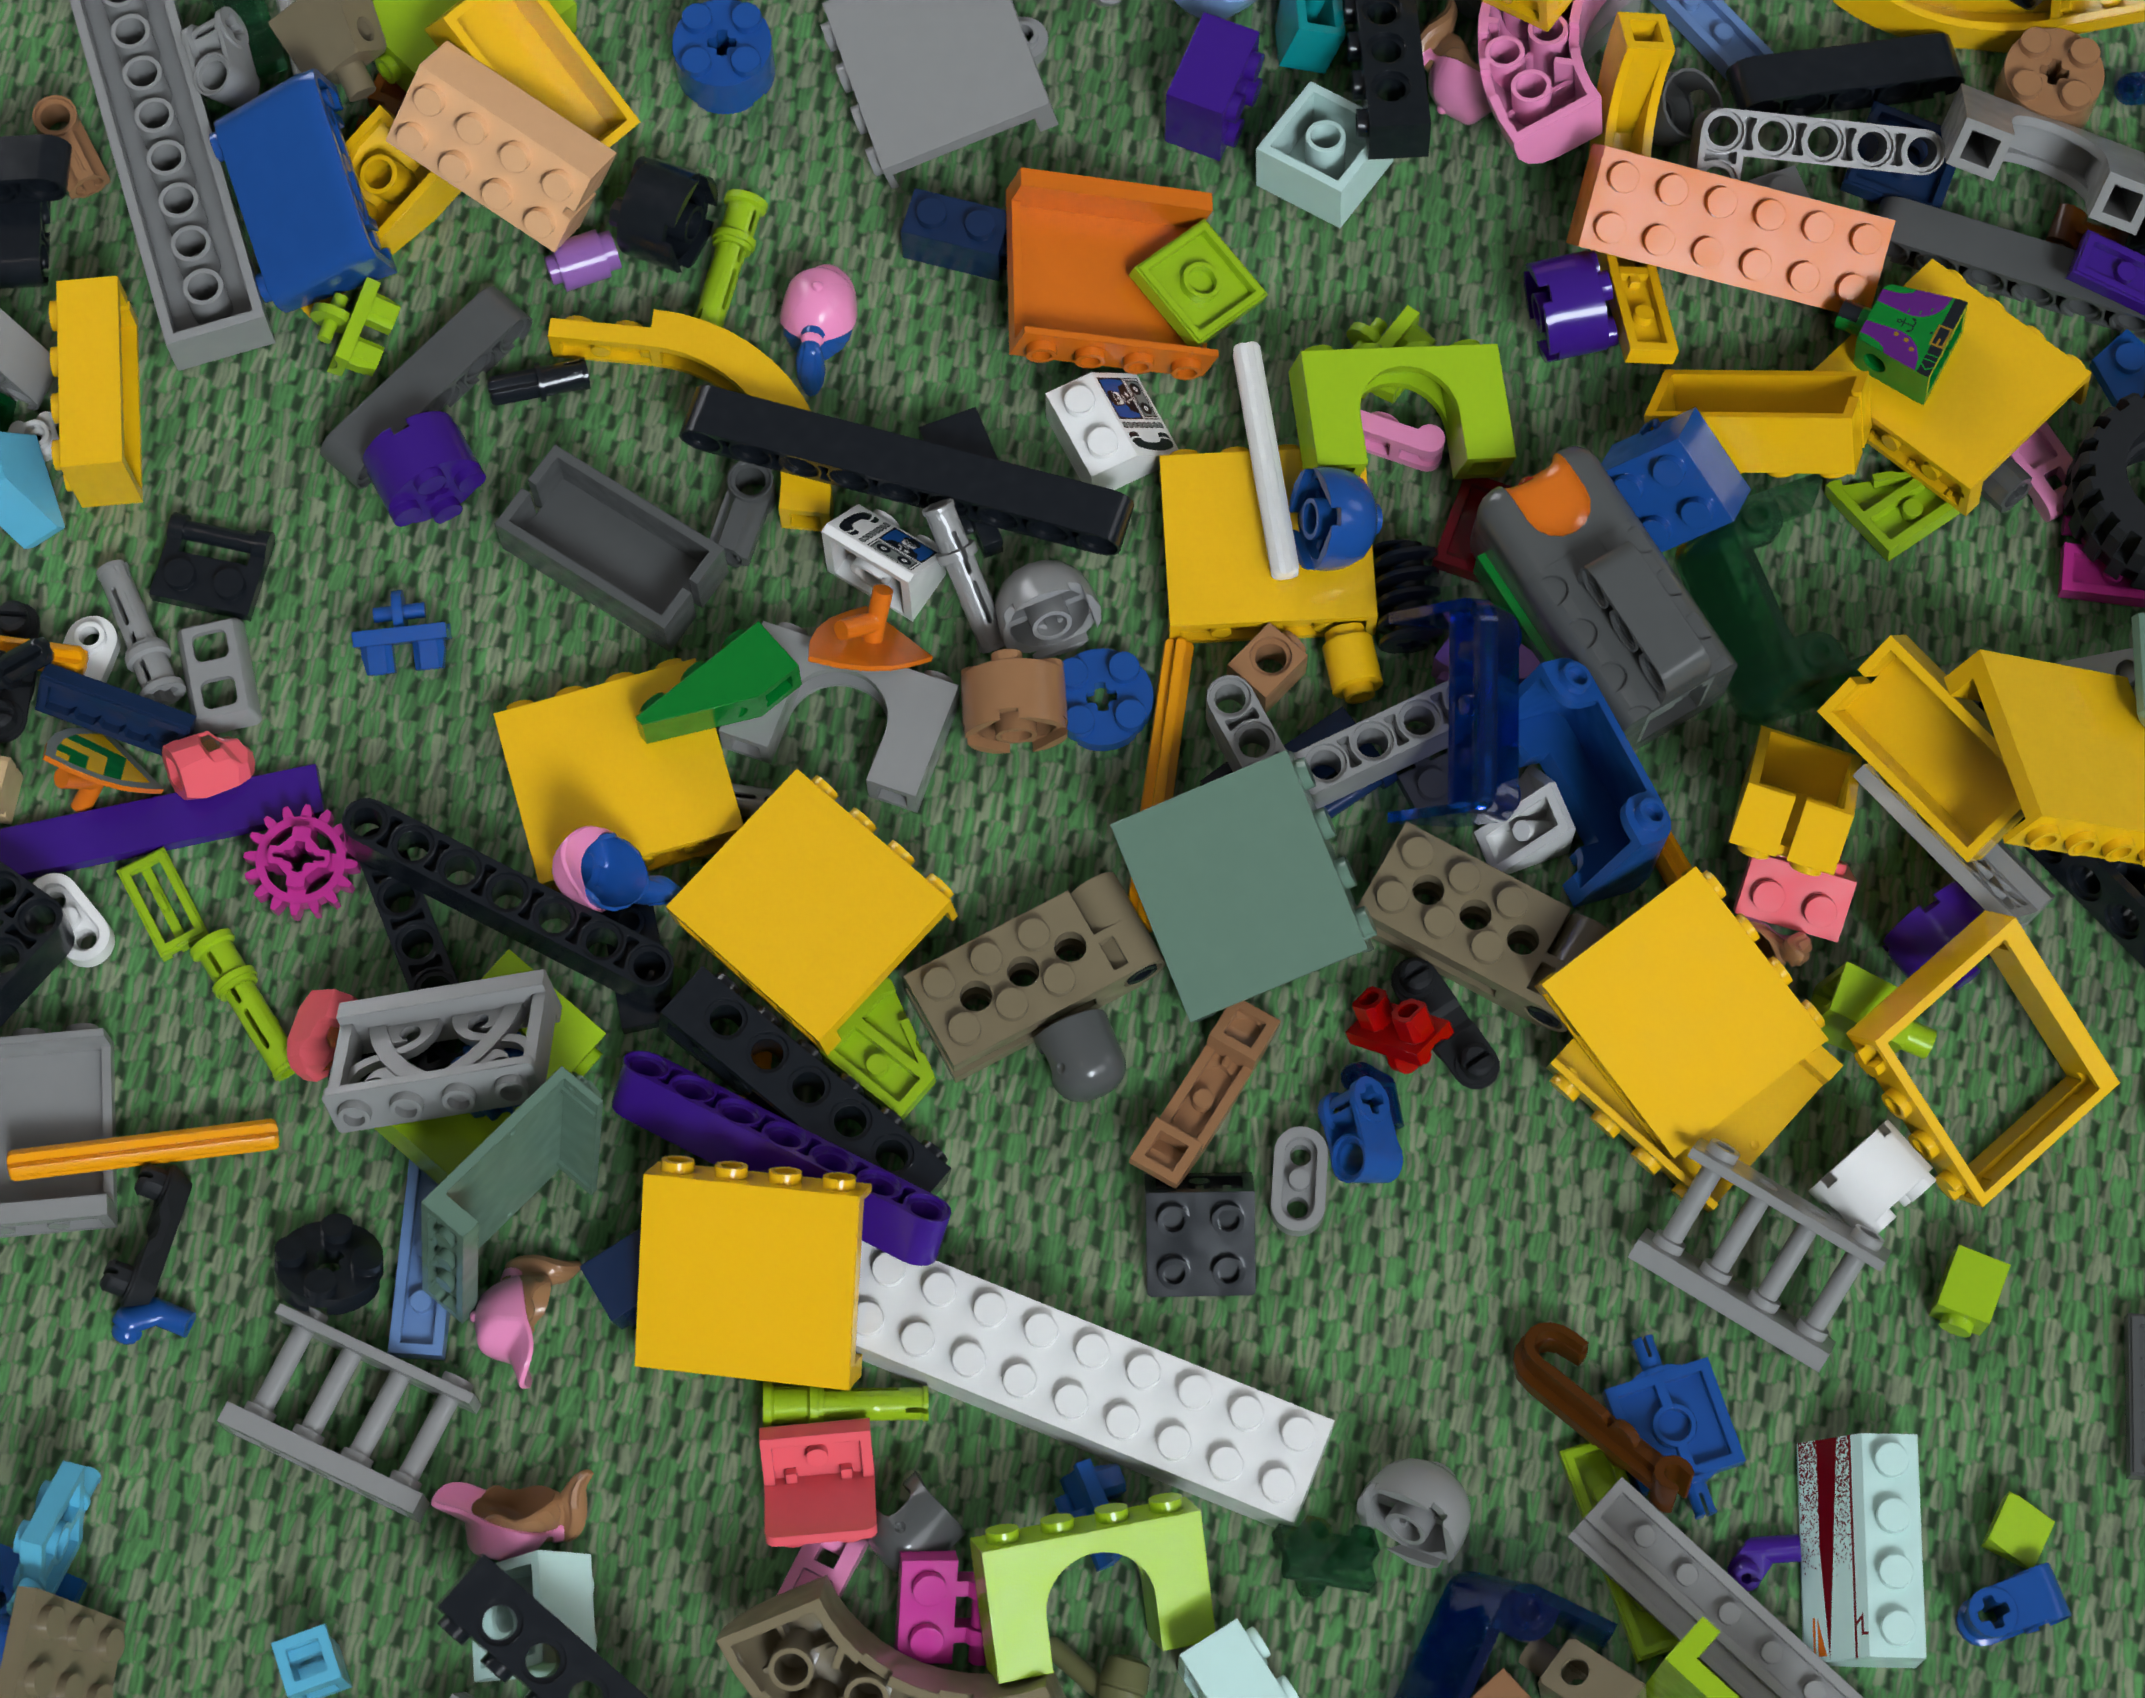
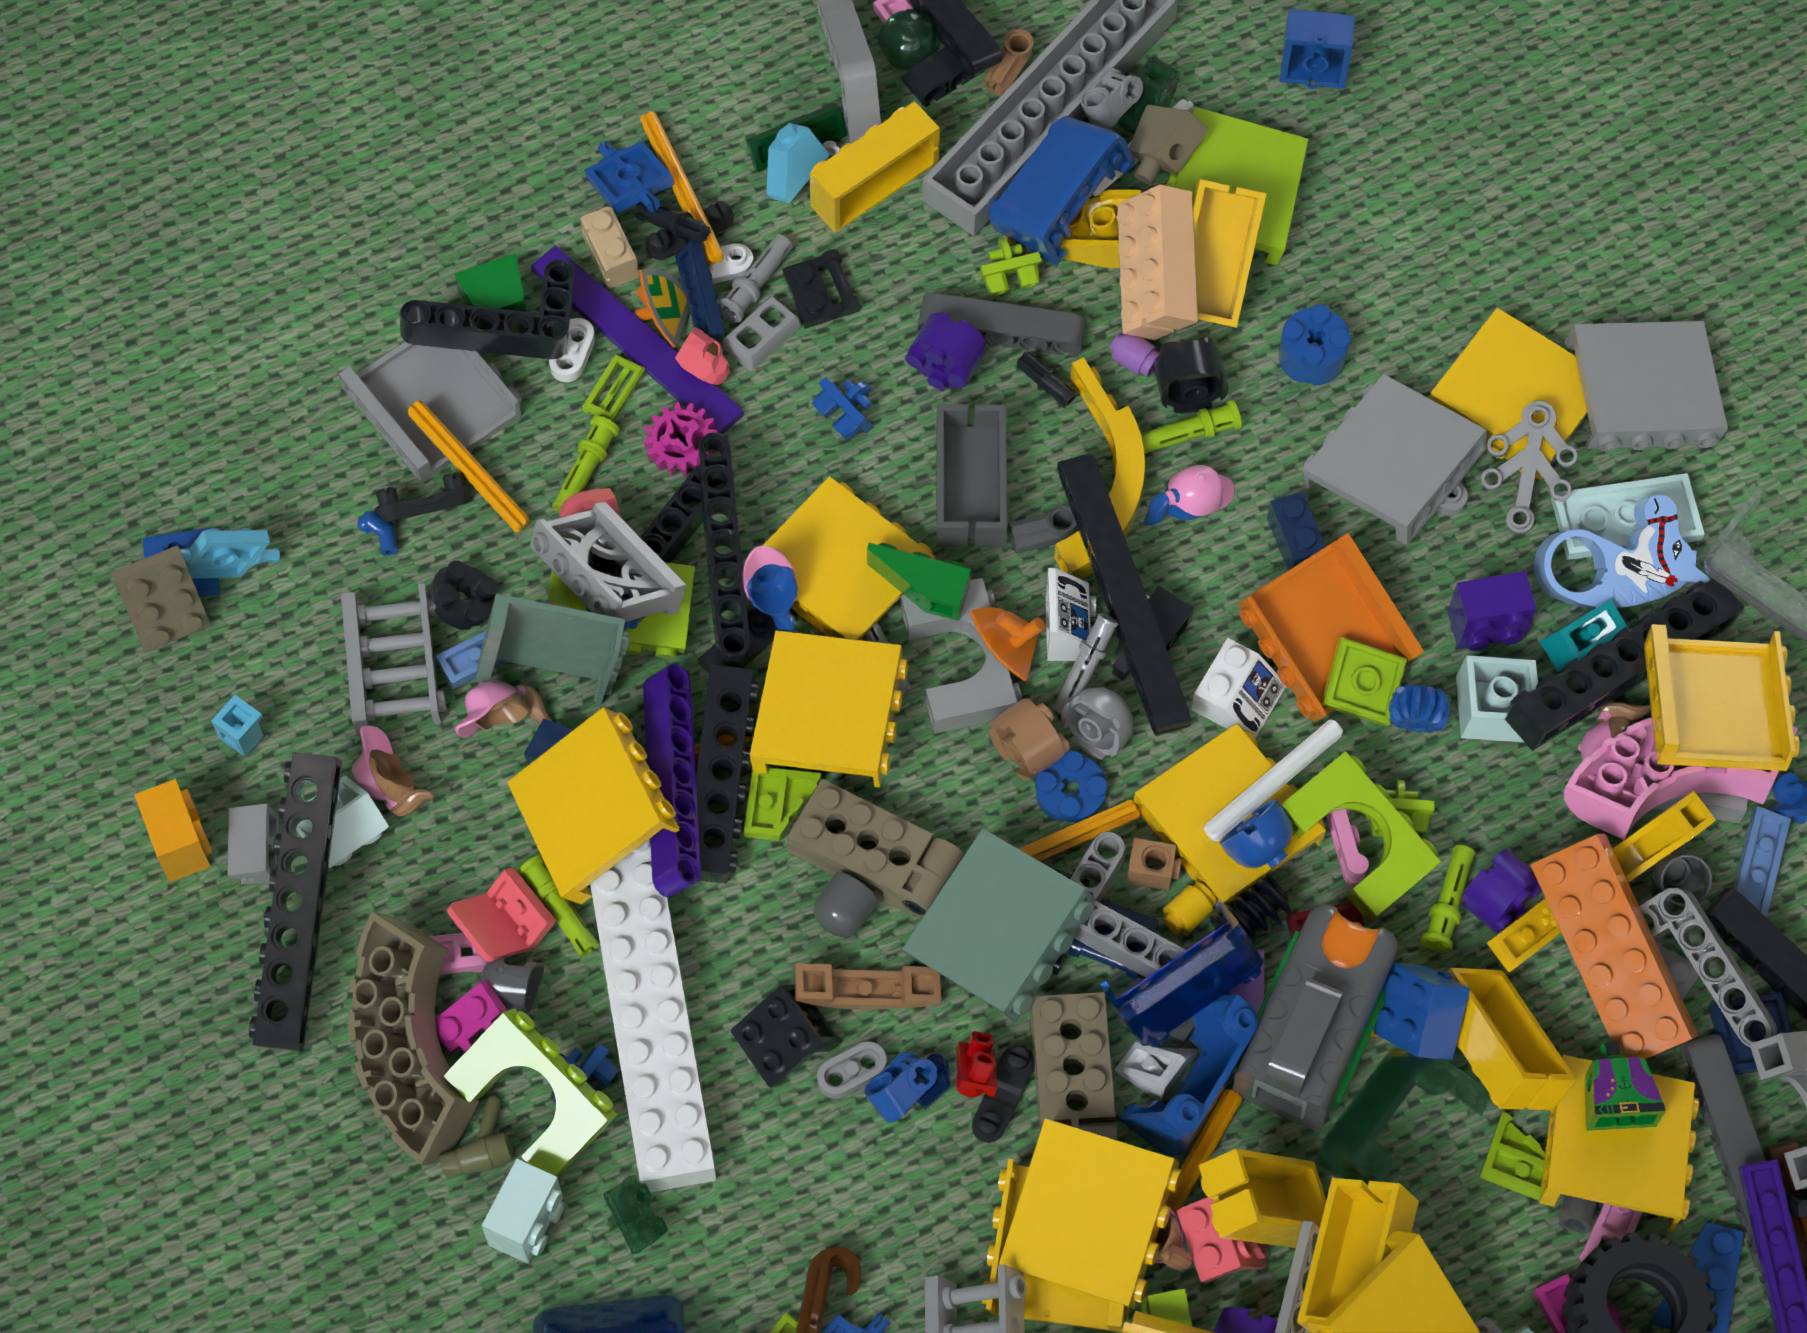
camera: 55 degrees right, 5 degrees down
(1278, 246) = (1419, 708): none -> blue gear
(1419, 1508) = (698, 1249): light grey cylinder -> none
(1545, 387) = (1445, 913): none -> lime pin

